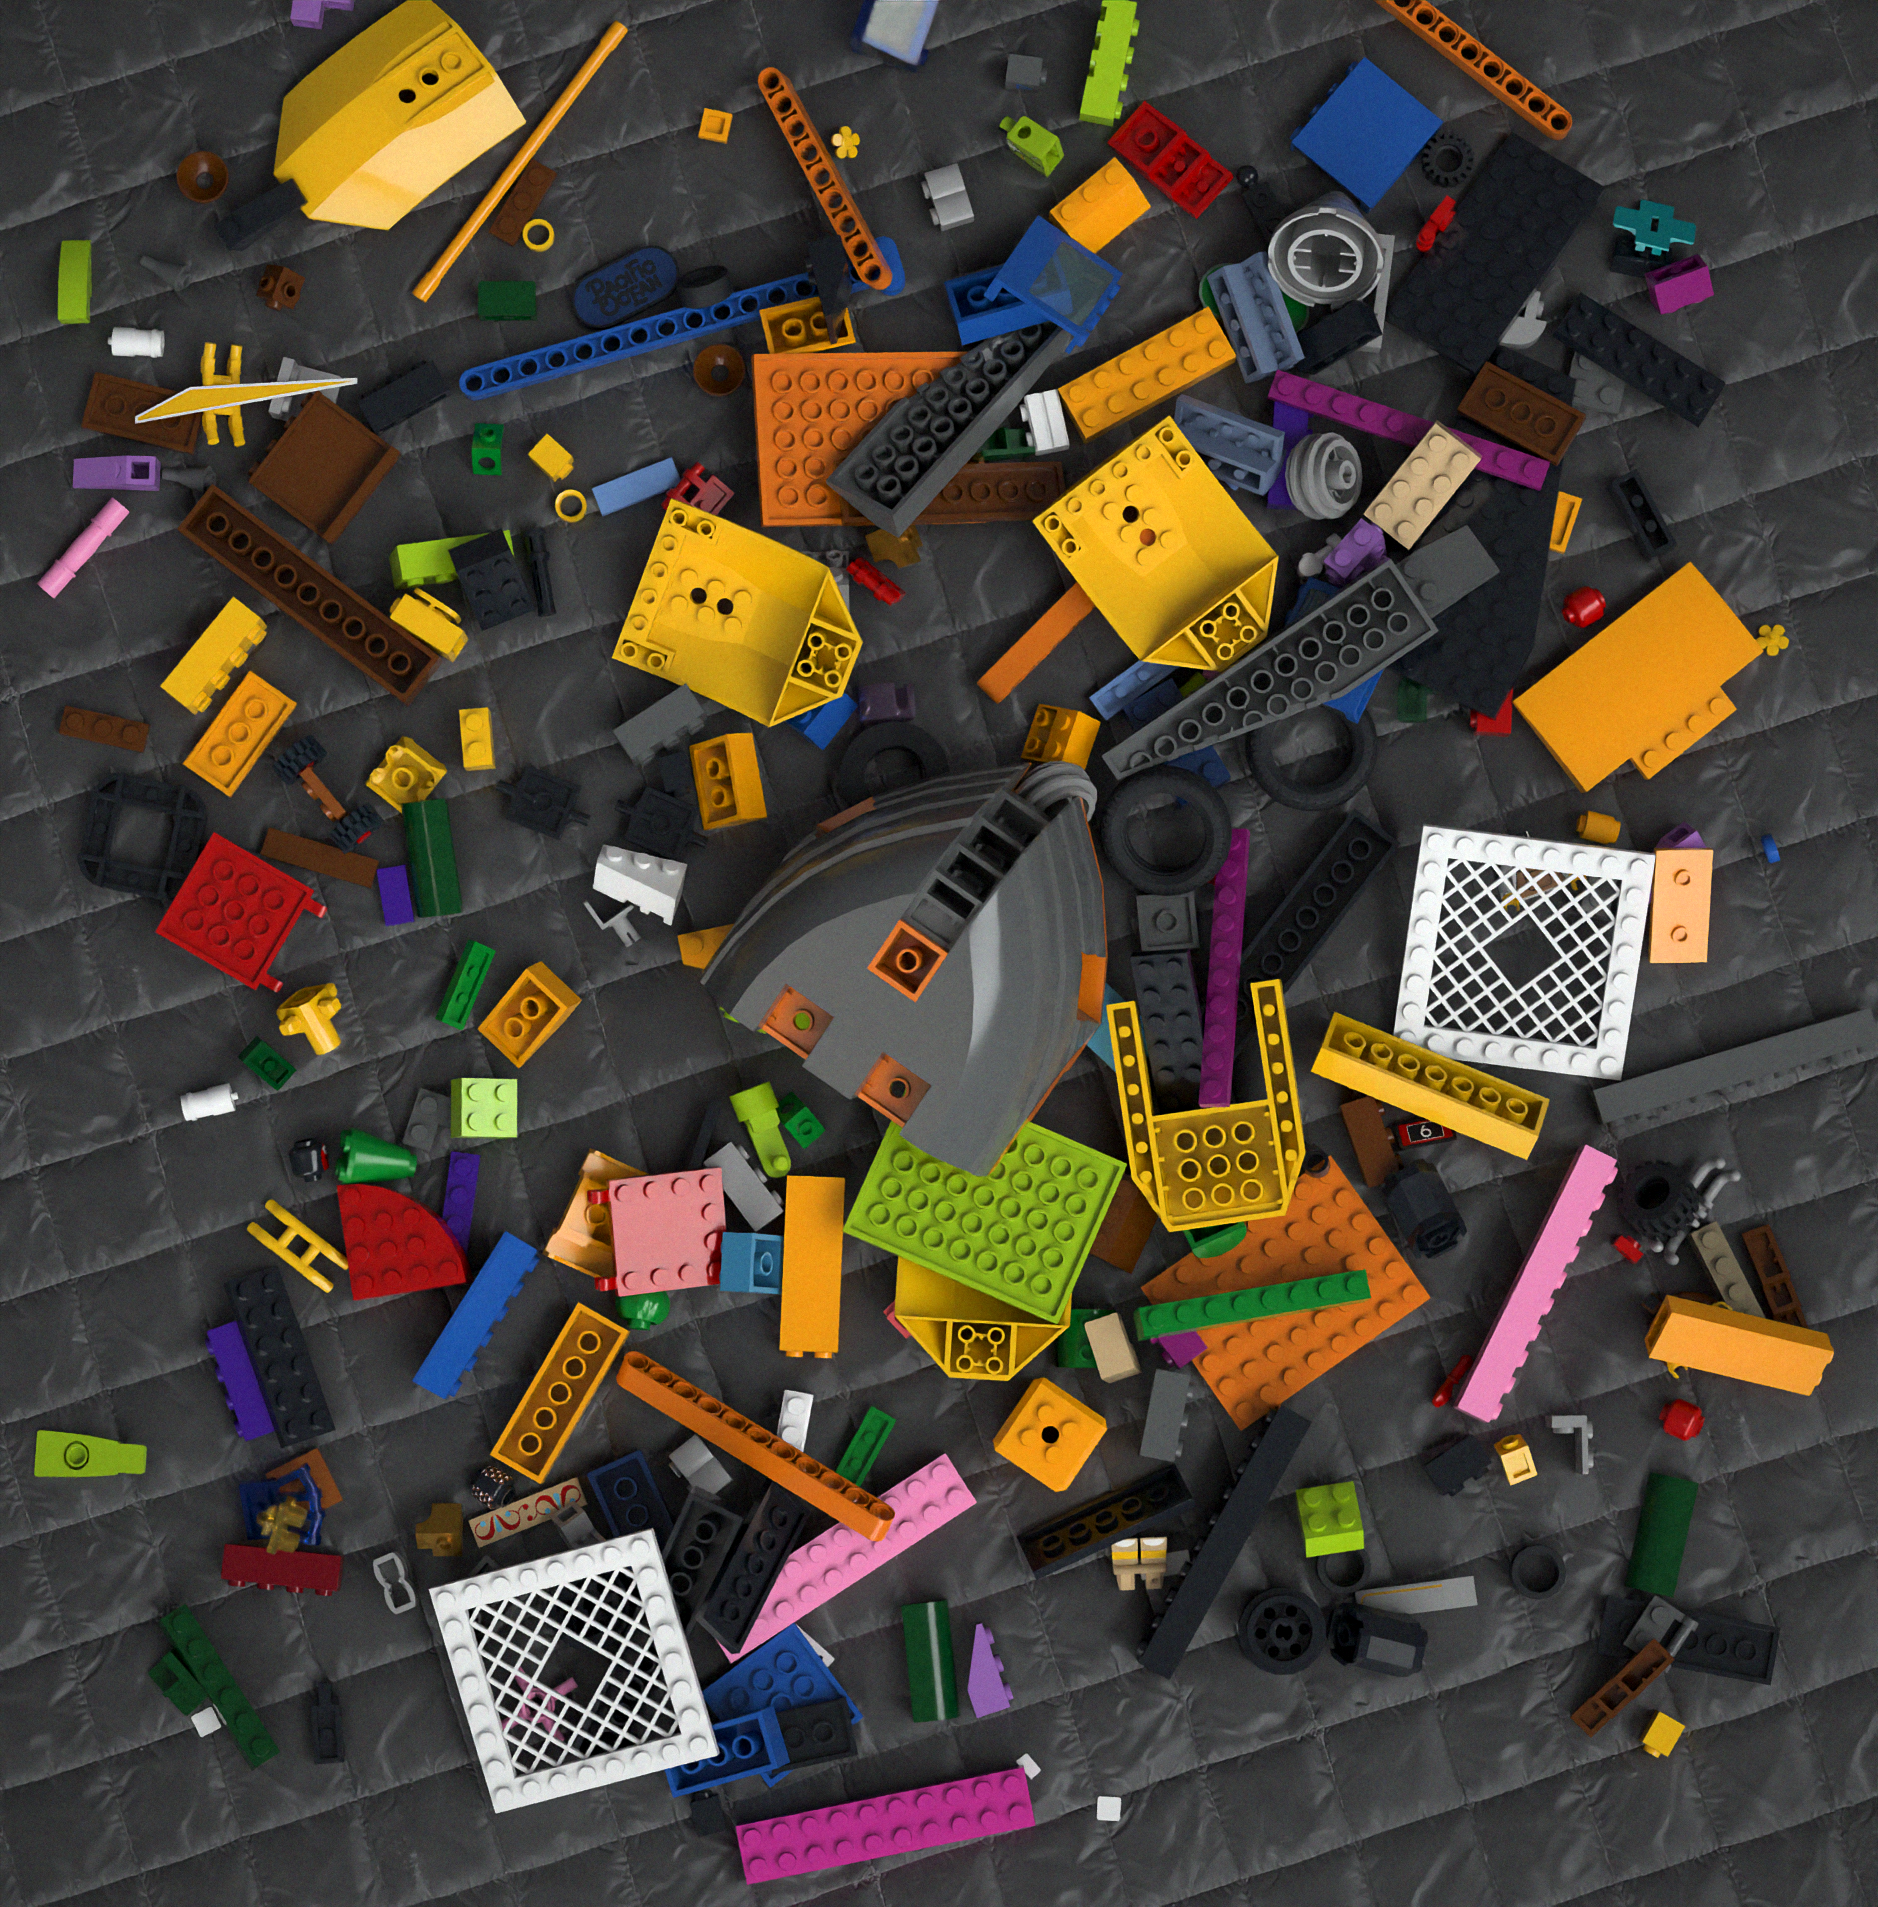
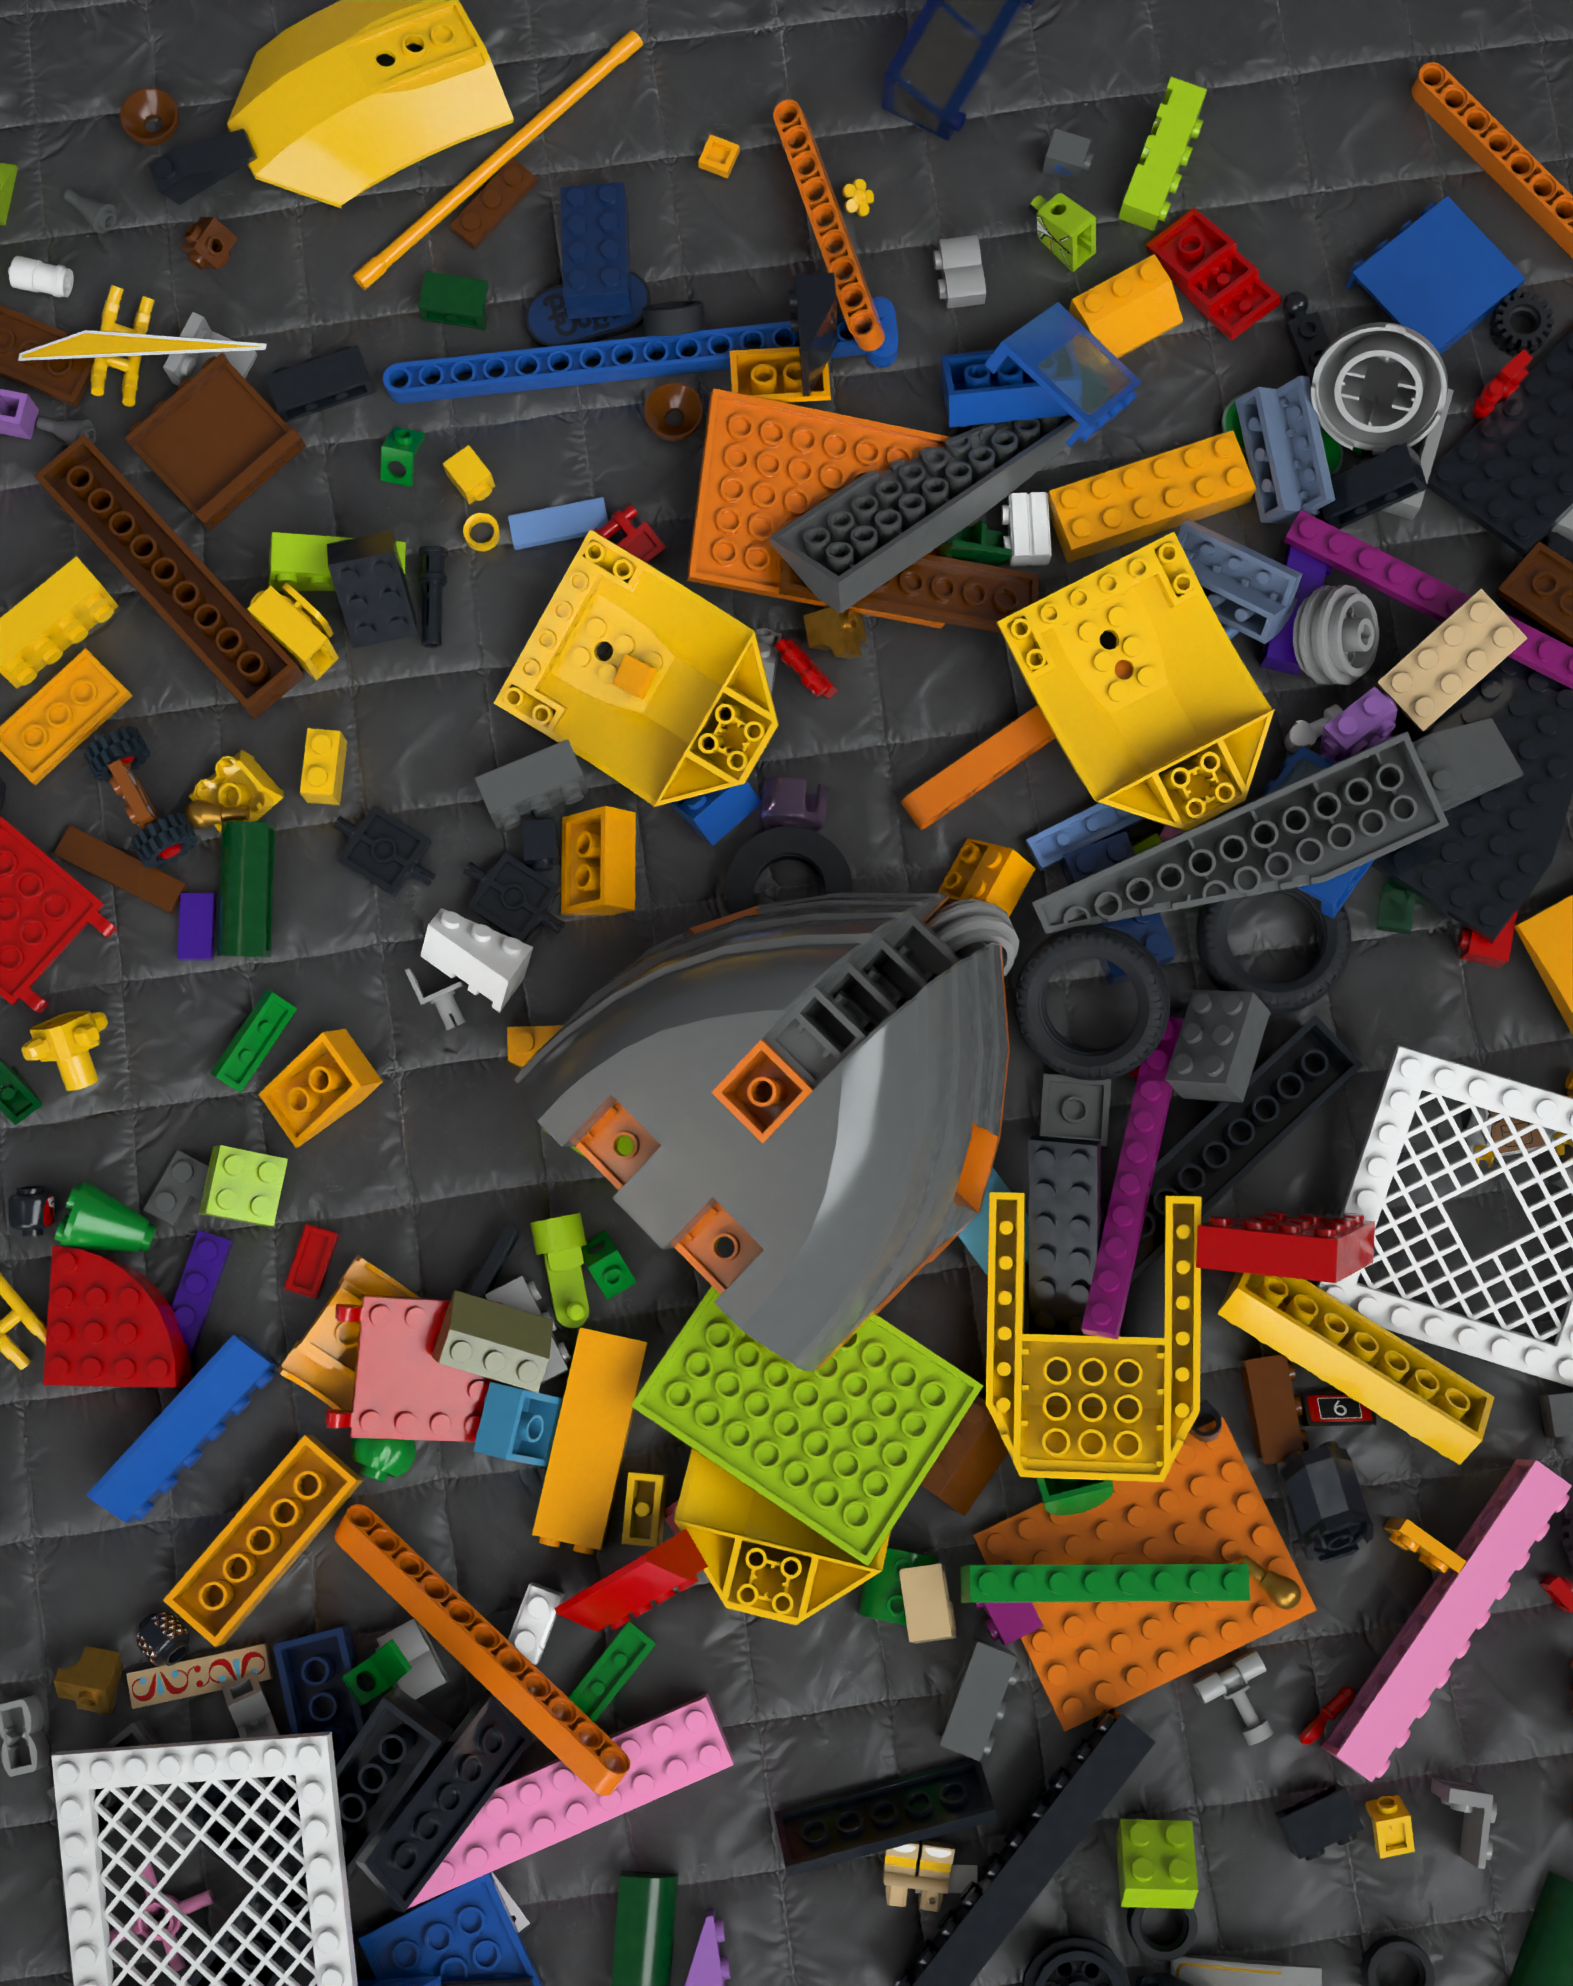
camera: 10 degrees right, 5 degrees down
(385, 798) = (205, 814): none -> pearl gold piece
(538, 248) = (505, 253): yellow piece -> none
(551, 1160) = (311, 1261): none -> red tile
(624, 236) = (596, 250): none -> dark blue brick
(680, 1476) = (384, 1667): none -> green bracket
(721, 1198) = (494, 1341): none -> olive slope
(729, 615) = (634, 676): none -> light orange tile
(867, 1313) = (644, 1509): none -> yellow brick
(872, 1372) = (636, 1585): none -> red slope
(1022, 1440) = (827, 1664): light orange plate -> none
(1277, 848) = (1218, 1045): none -> dark grey brick
(1357, 1006) = (1287, 1246): none -> red brick
(1371, 1369) = (1233, 1684): none -> light grey bar
(1396, 1285) = (1280, 1589): none -> pearl gold piece
(1497, 1225) = (1432, 1552): none -> light orange plate

